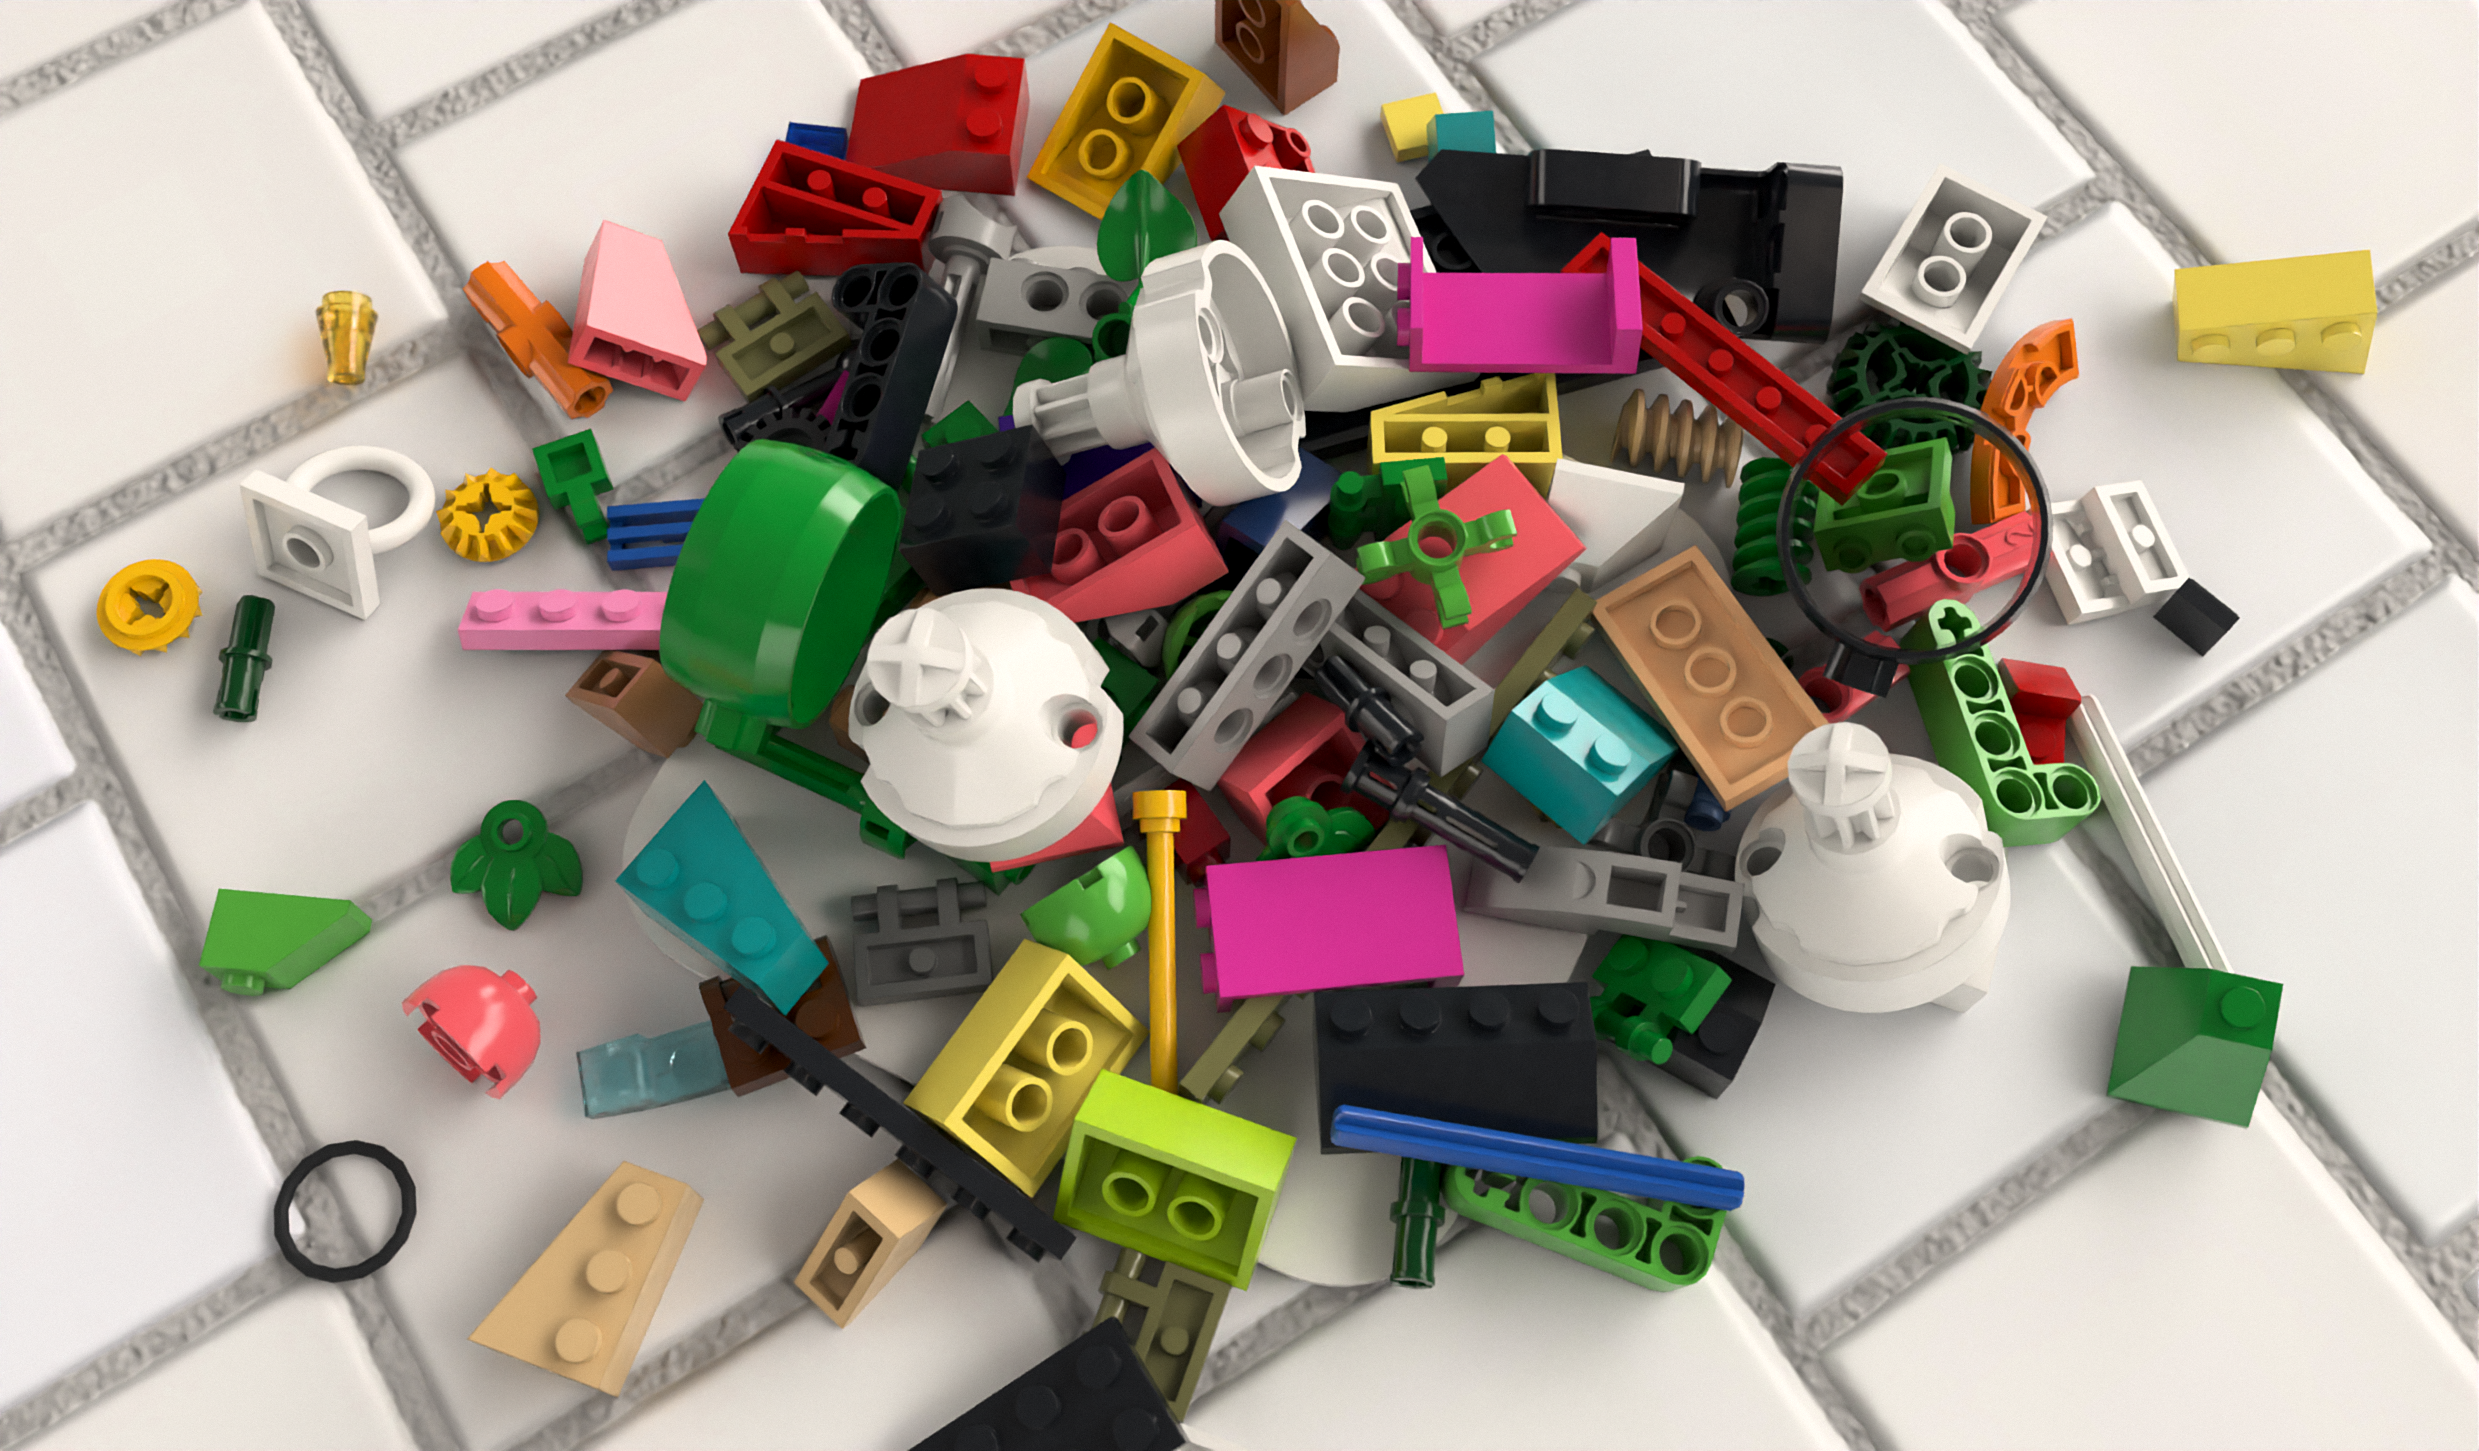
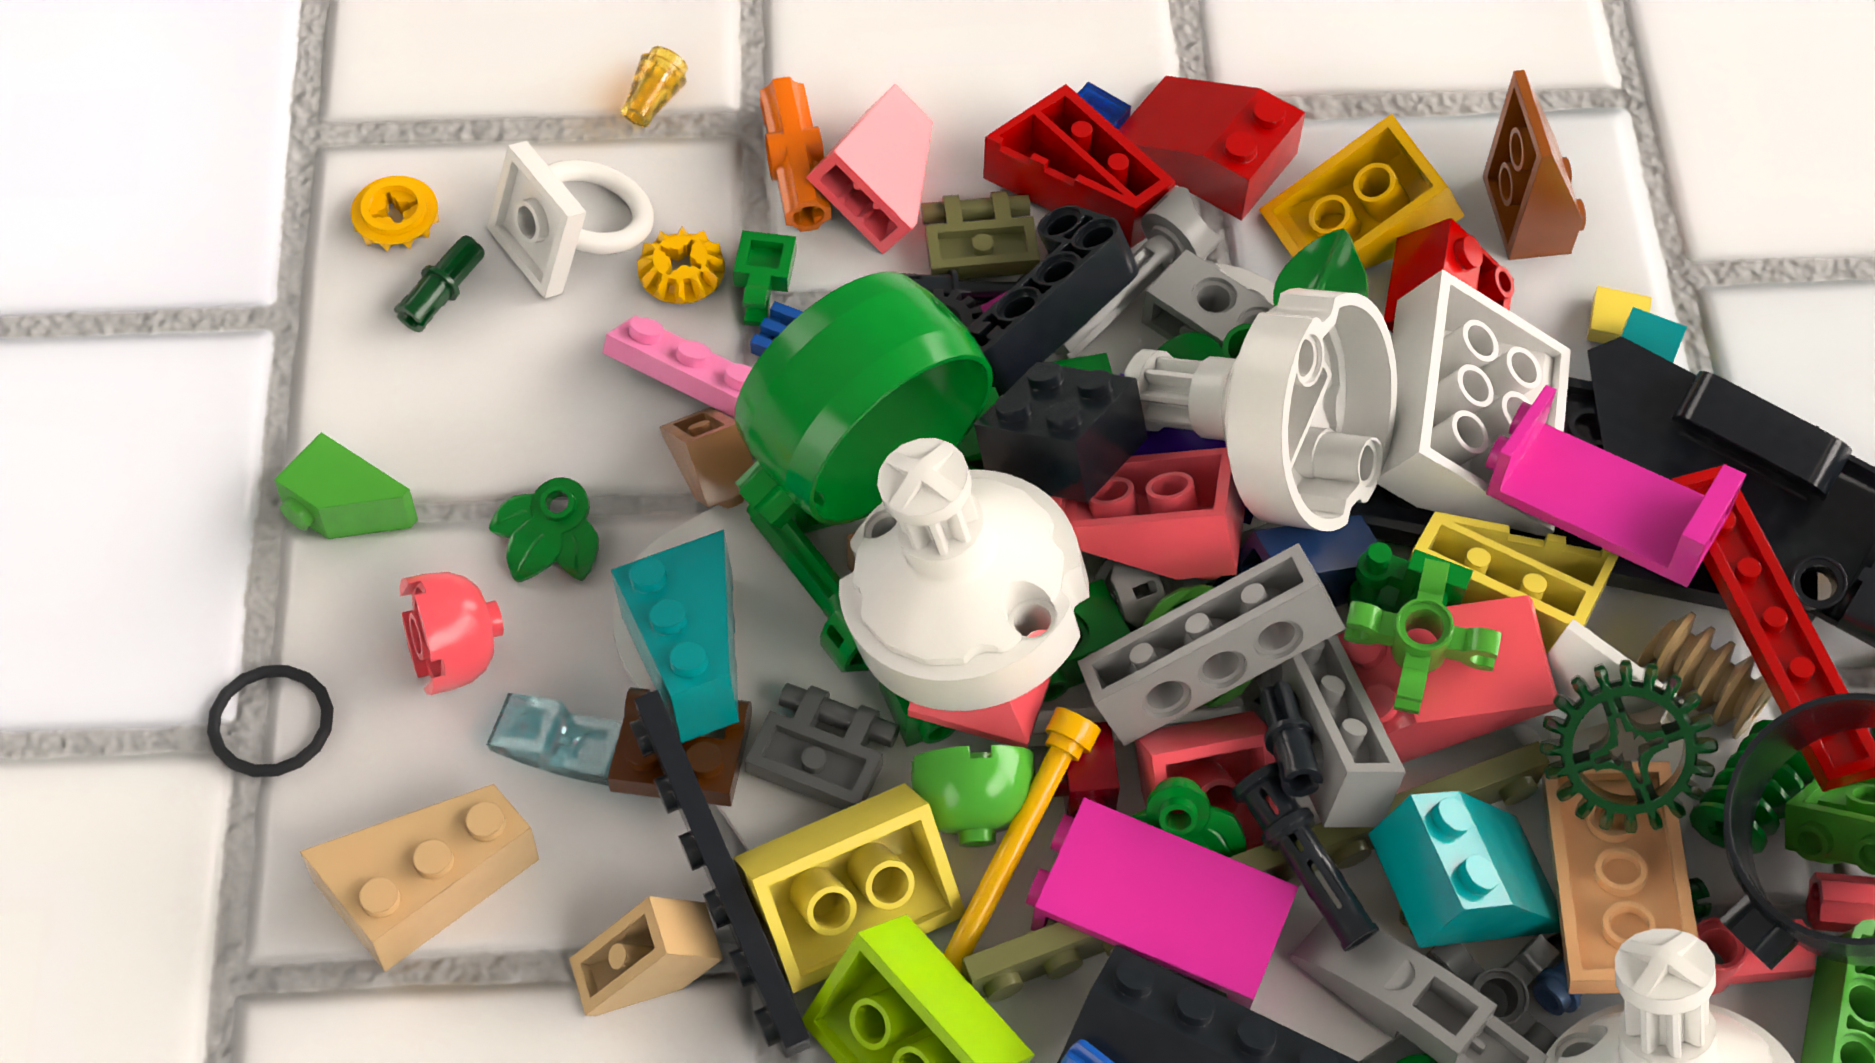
camera: 30 degrees right, 10 degrees down
(1687, 541) = (1657, 736): none -> dark green gear

